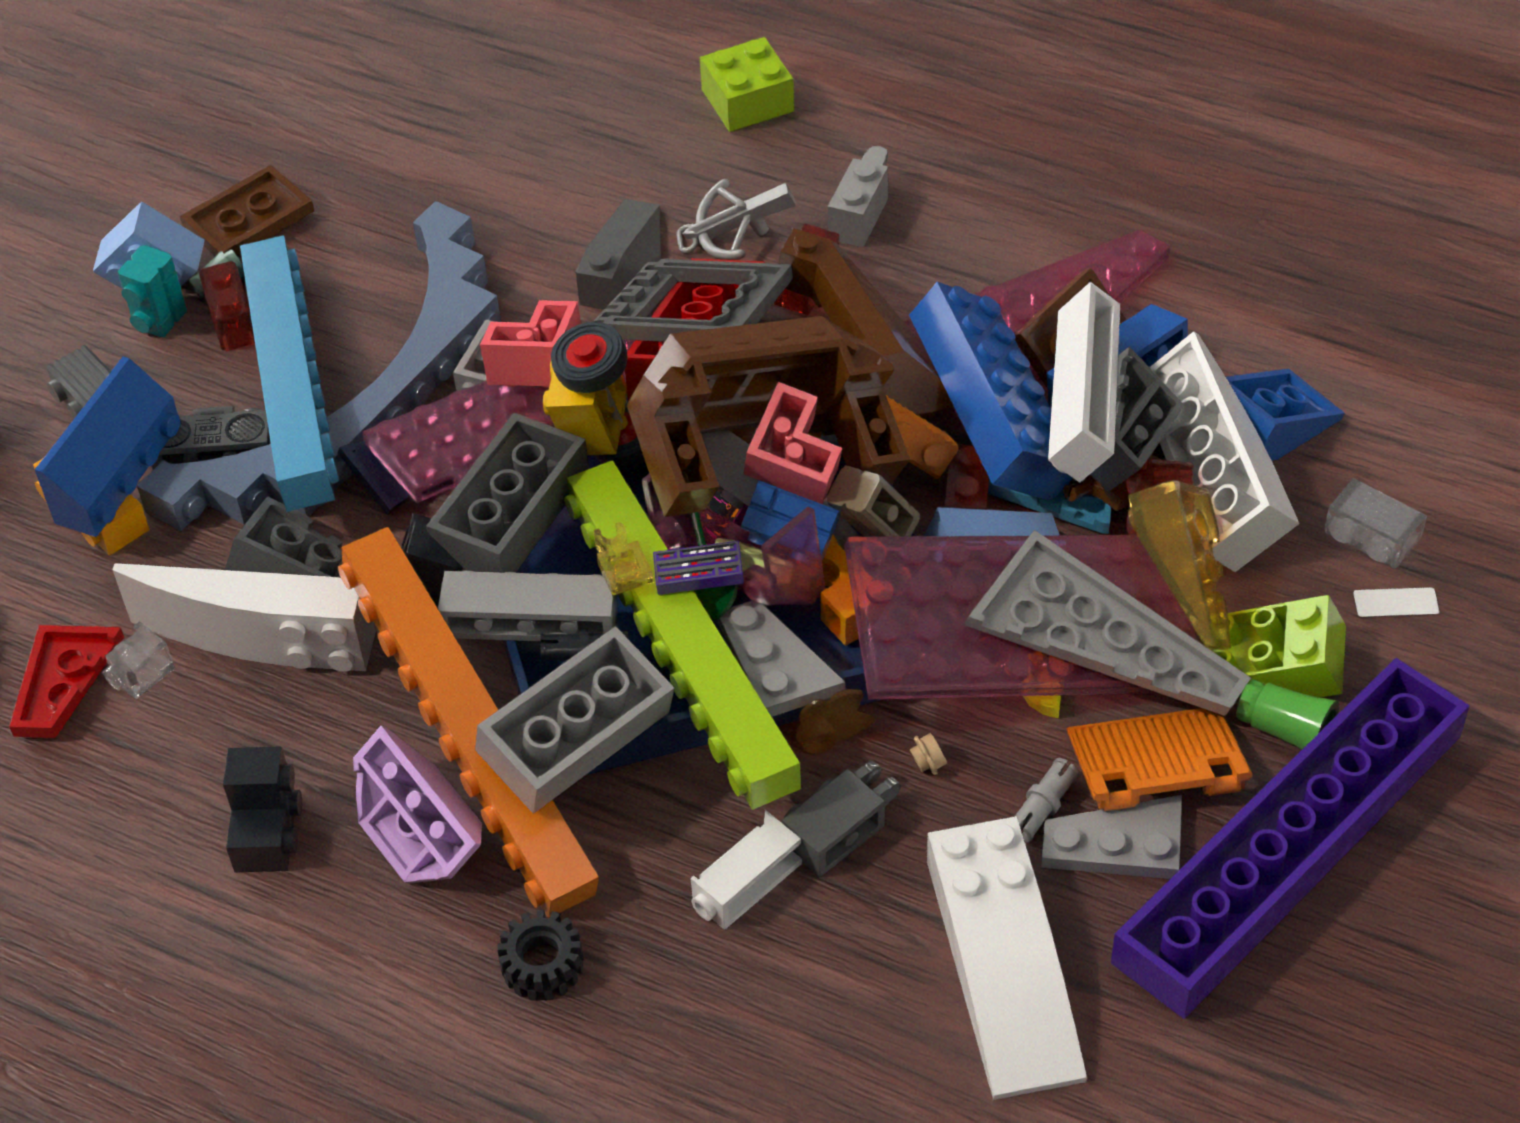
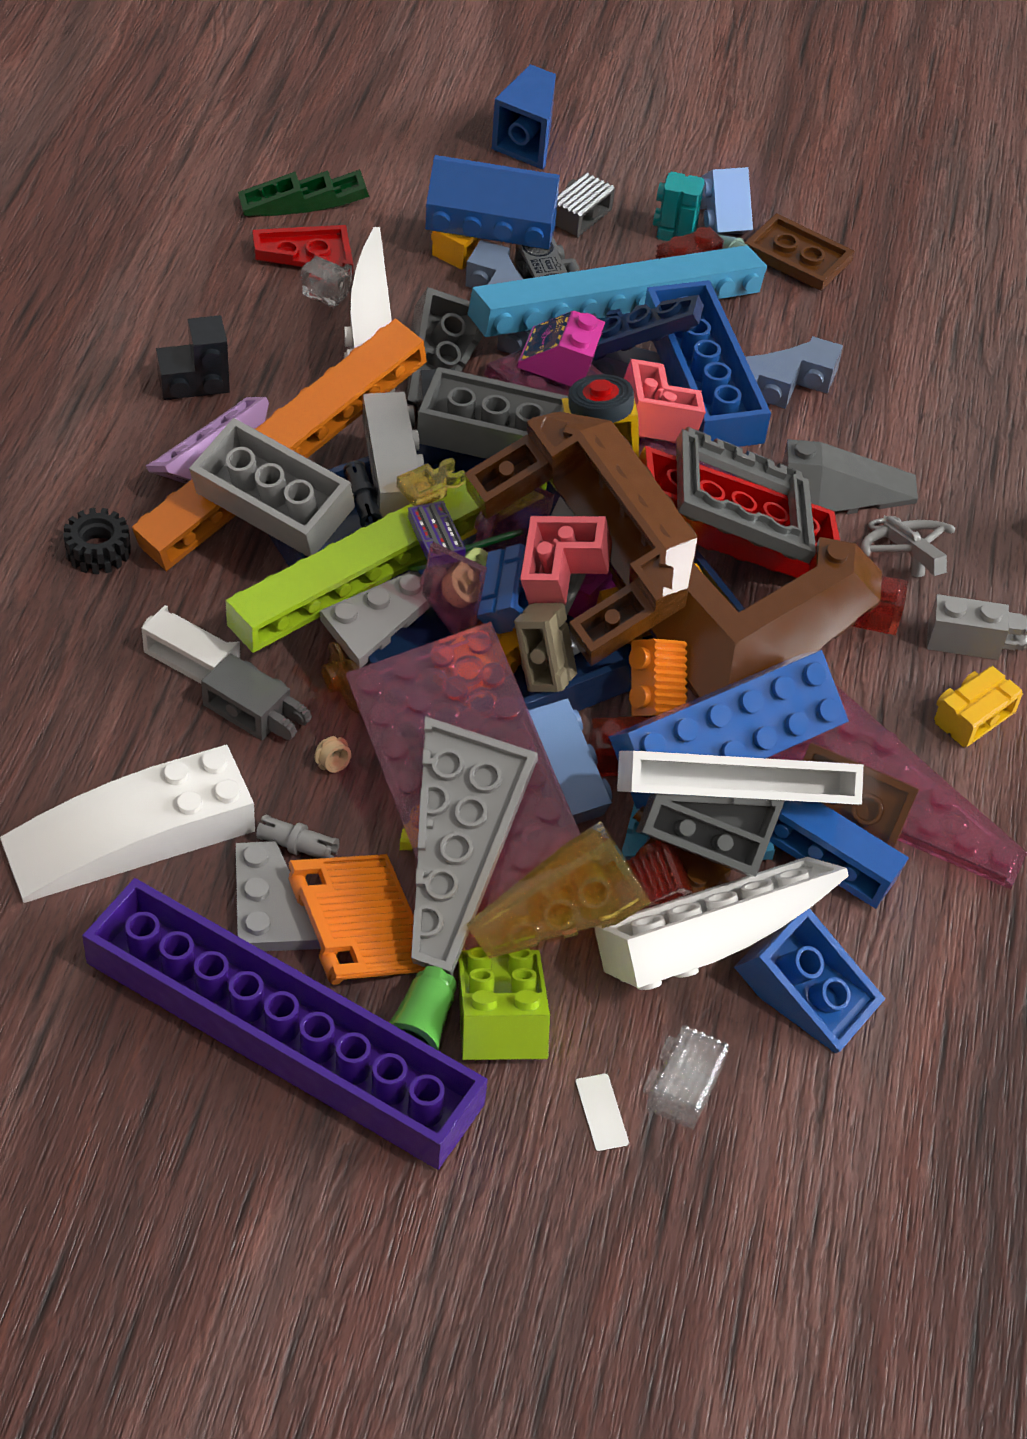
camera: 70 degrees right, 0 degrees up
(387, 364) = (647, 324): none -> dark blue wing
(418, 411) = (562, 347): none -> dark pink slope
(441, 304) = (714, 363): none -> blue brick
(958, 220) = (977, 705): none -> yellow brick

